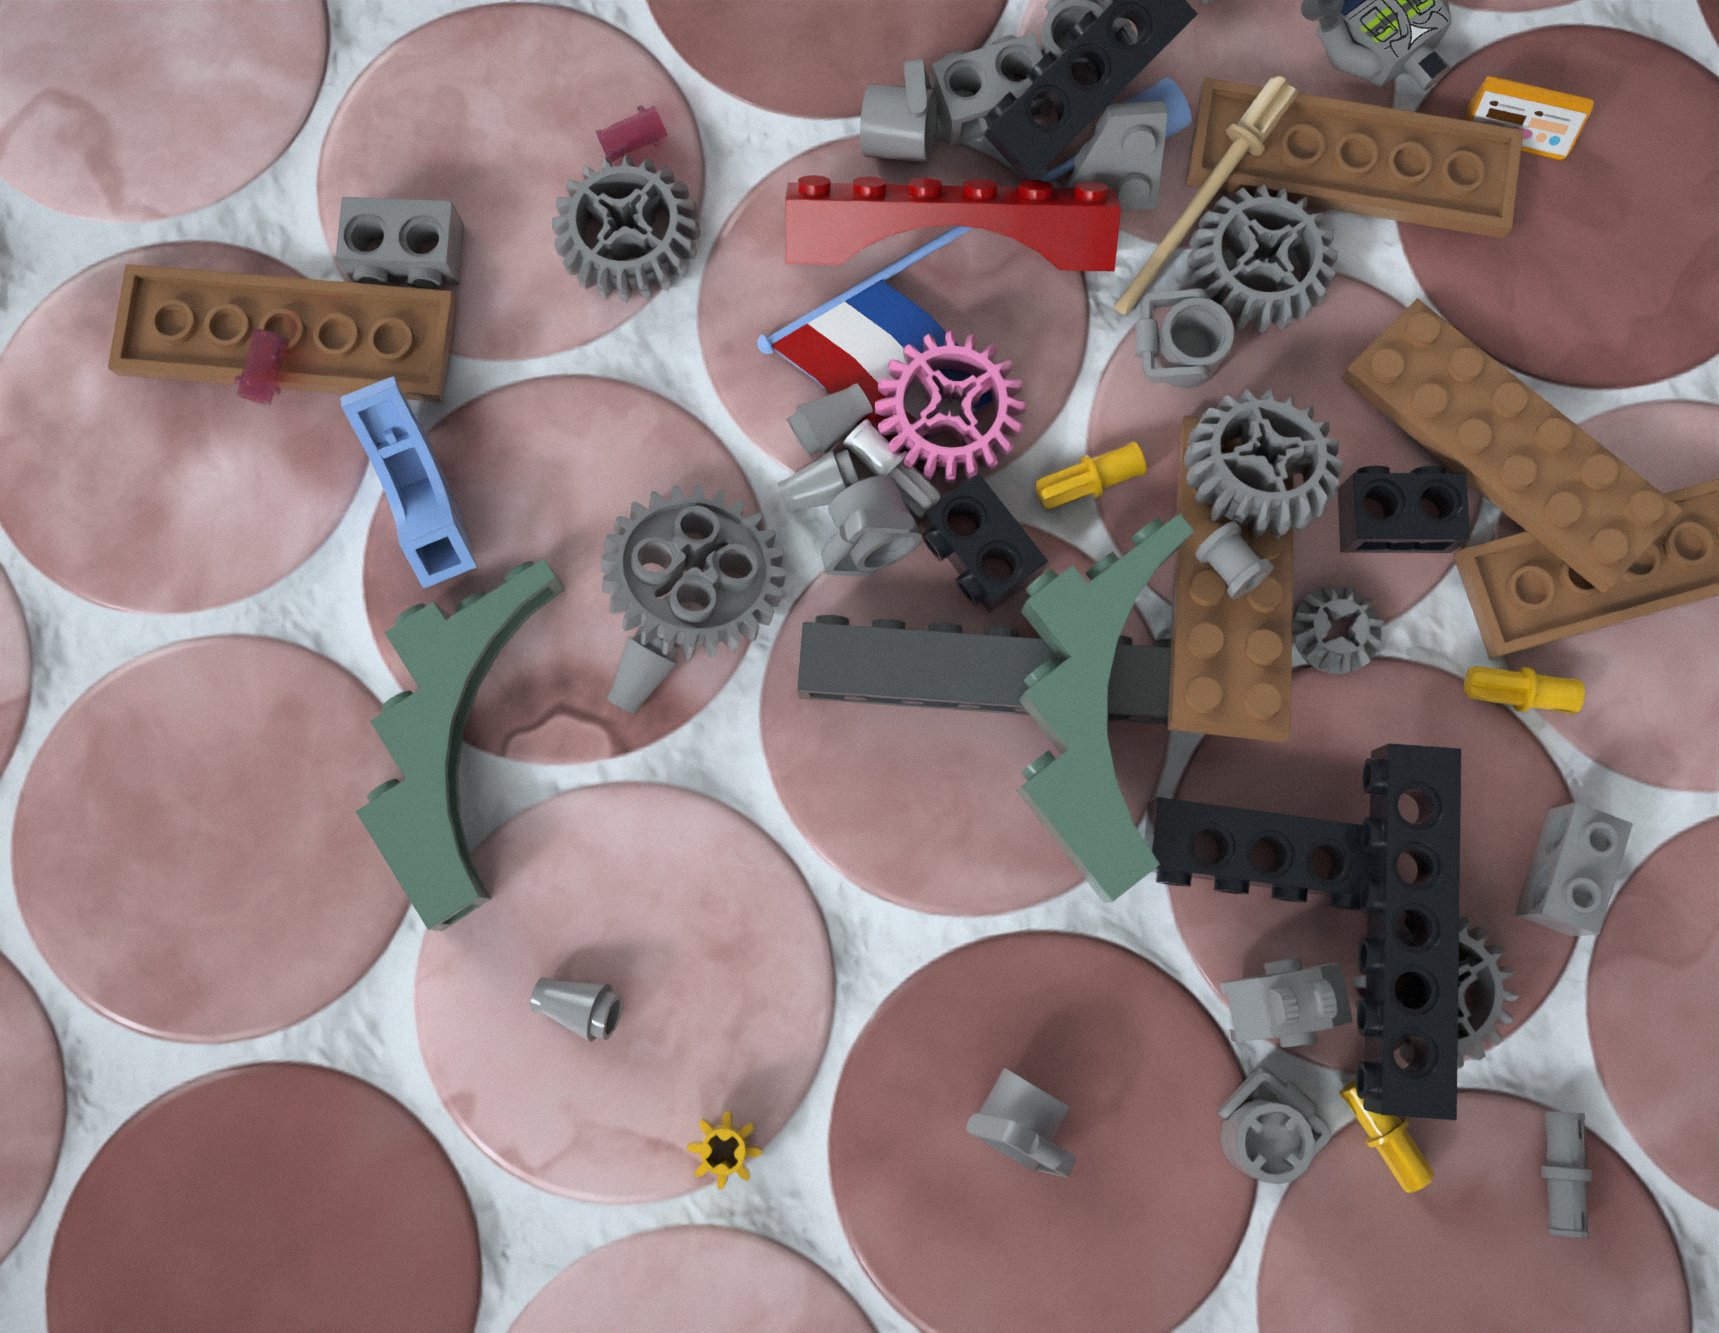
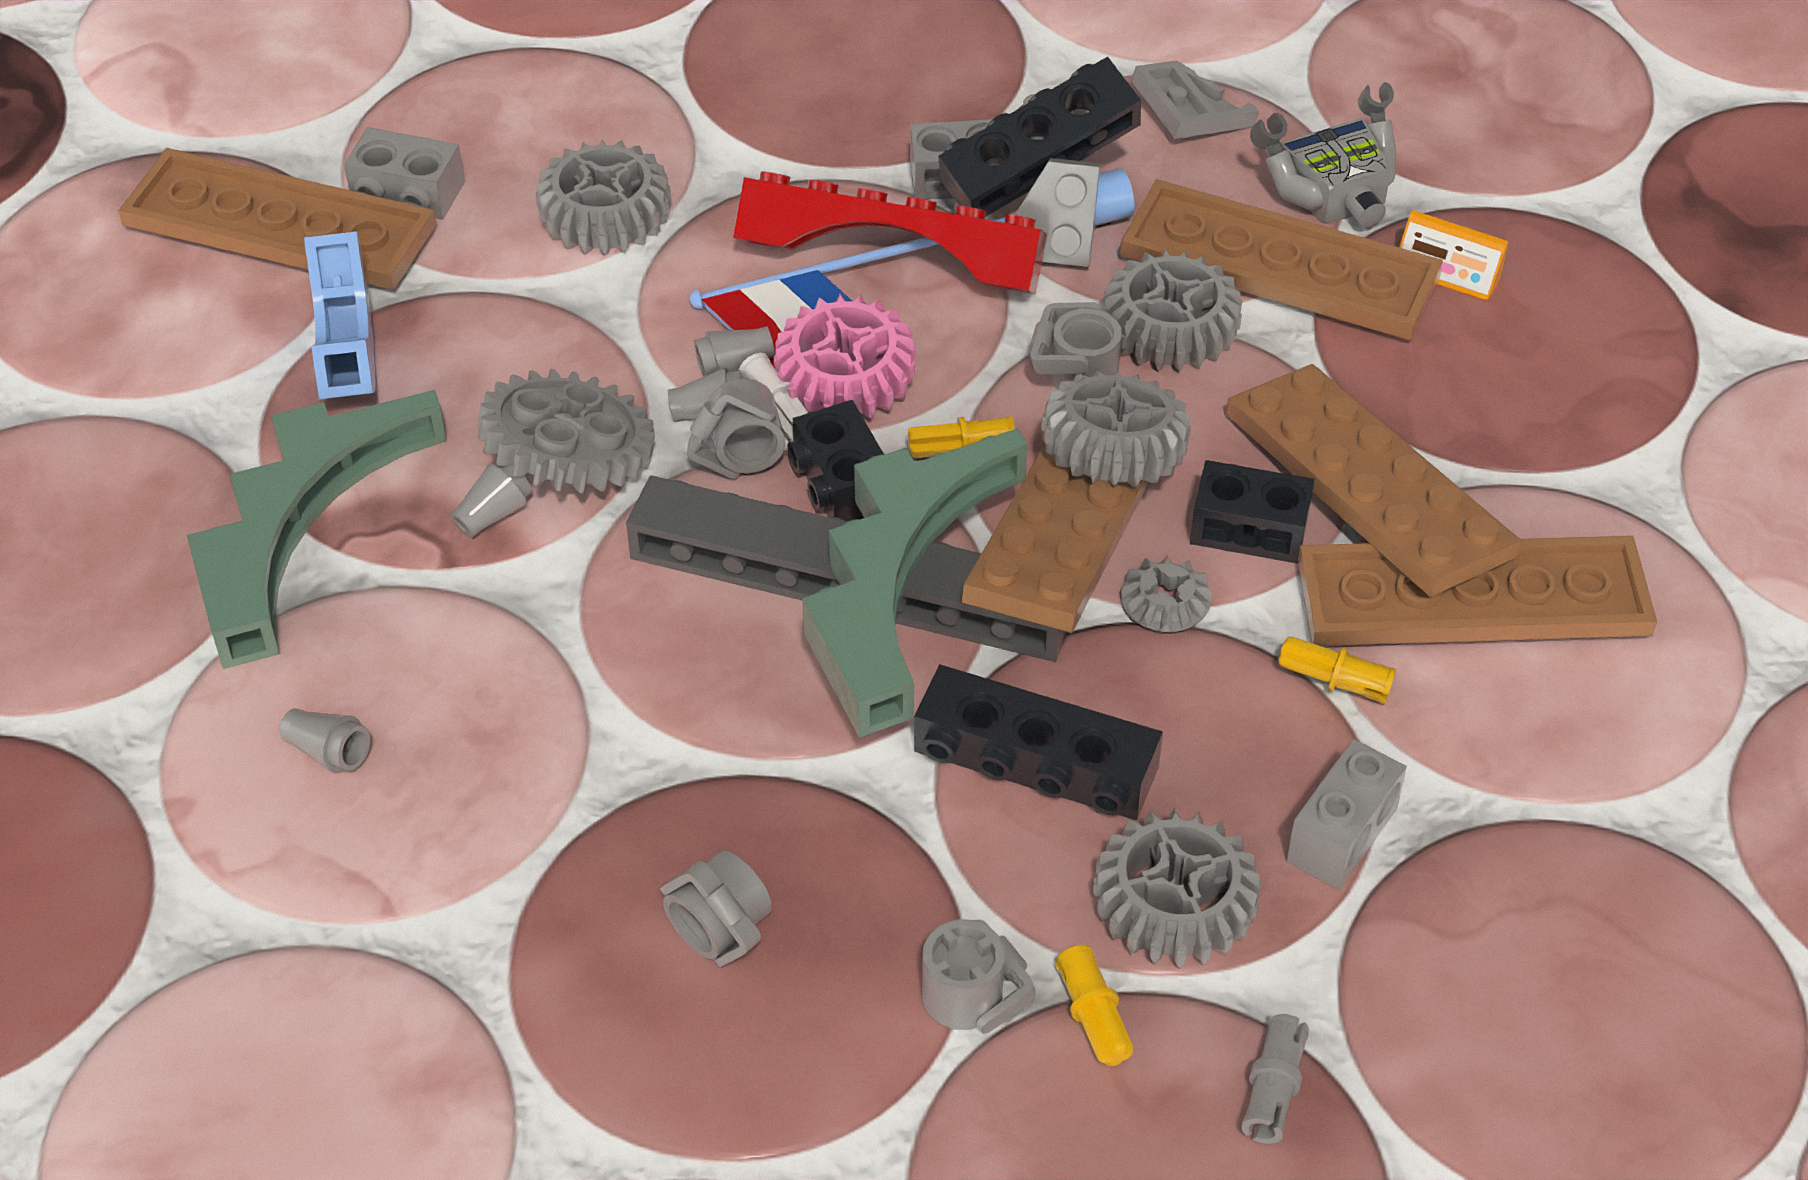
camera: 15 degrees right, 30 degrees down
(262, 367) = (241, 233): clear pink pin -> none
(632, 133) = (646, 135): clear pink pin -> none
(725, 1165) = (417, 875): yellow gear -> none
(900, 119) = (872, 158): light grey piece -> none
(1234, 560) = (1056, 472): light grey bush -> none
(1247, 136) = (1177, 215): tan piece -> none
(1288, 1002) = (1019, 860): light grey hinge -> none
(1432, 959) = (1163, 758): black brick -> none

